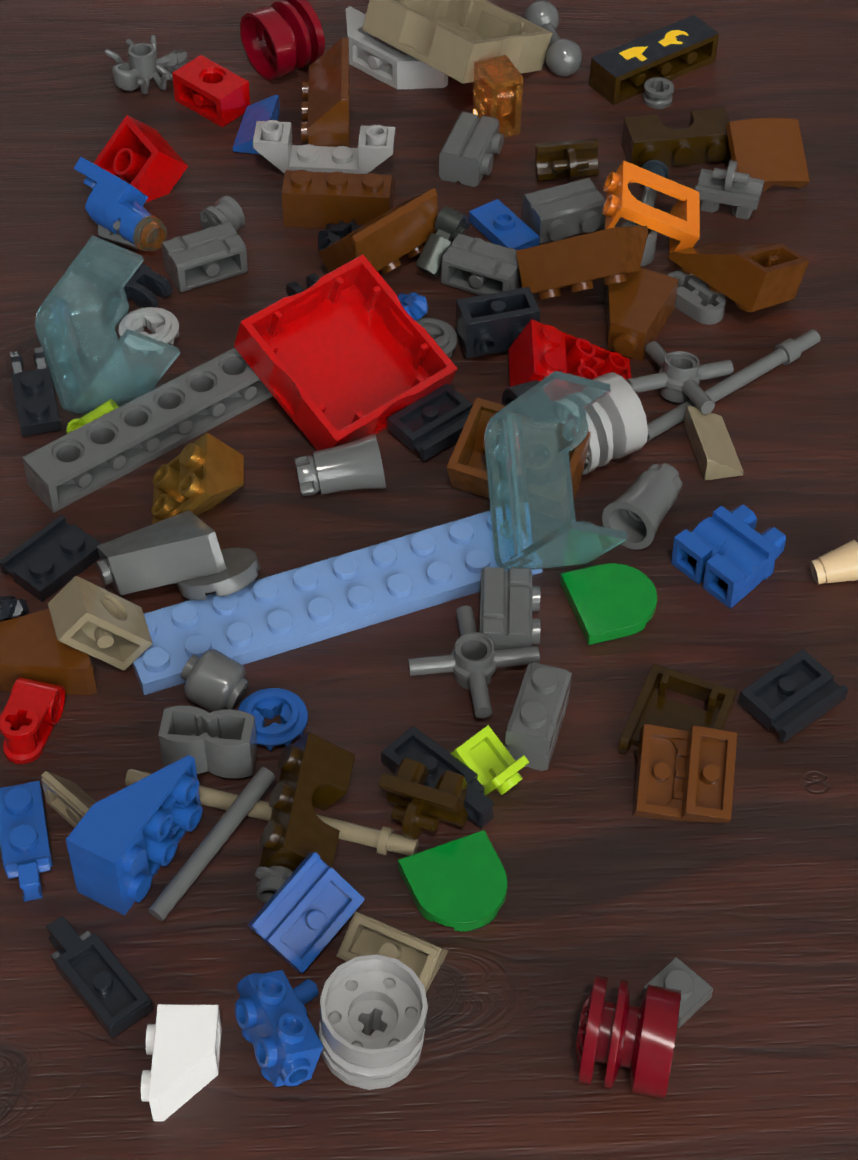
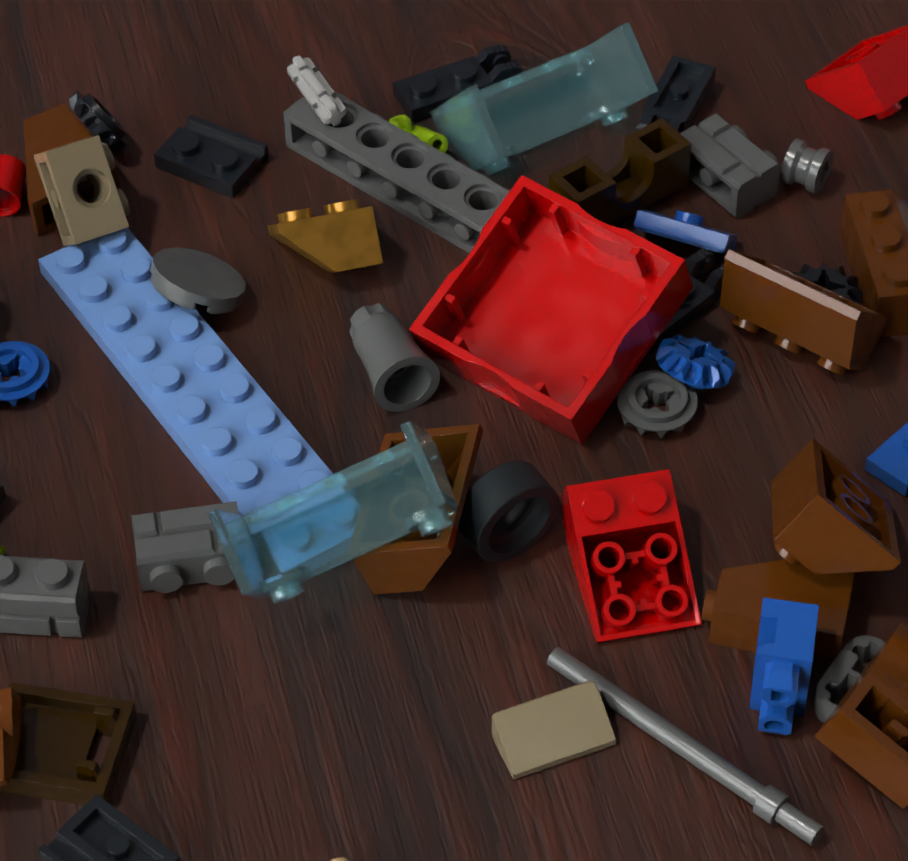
camera: 80 degrees right, 0 degrees up
(42, 453) = (316, 90): none -> light grey axle
(120, 210) = (785, 68): blue plate -> none
(157, 320) = (591, 138): light grey gear -> none
(160, 555) = (210, 227): dark grey slope -> none
(197, 296) = (650, 169): none -> dark brown arch
(214, 681) = (44, 311): dark grey head -> none
(263, 290) = (685, 228): none -> blue plate
(431, 421) = (510, 428): black plate -> none
(447, 225) = (853, 370): pearl dark grey bar -> none
(473, 661) = (104, 528): dark grey bar -> none
(480, 266) = (812, 412): dark grey brick -> none
(493, 320) = (700, 460): black brick -> none
(609, 600) = (243, 654): green tile -> none
(615, 423) = (514, 576): light grey wheel -> none
(644, 505) = (402, 660): dark grey plant -> none
(680, 376) = (659, 671): dark grey bar -> none
(691, 307) = (783, 663): none -> blue hips
(728, 551) = (337, 763): blue hips -> none

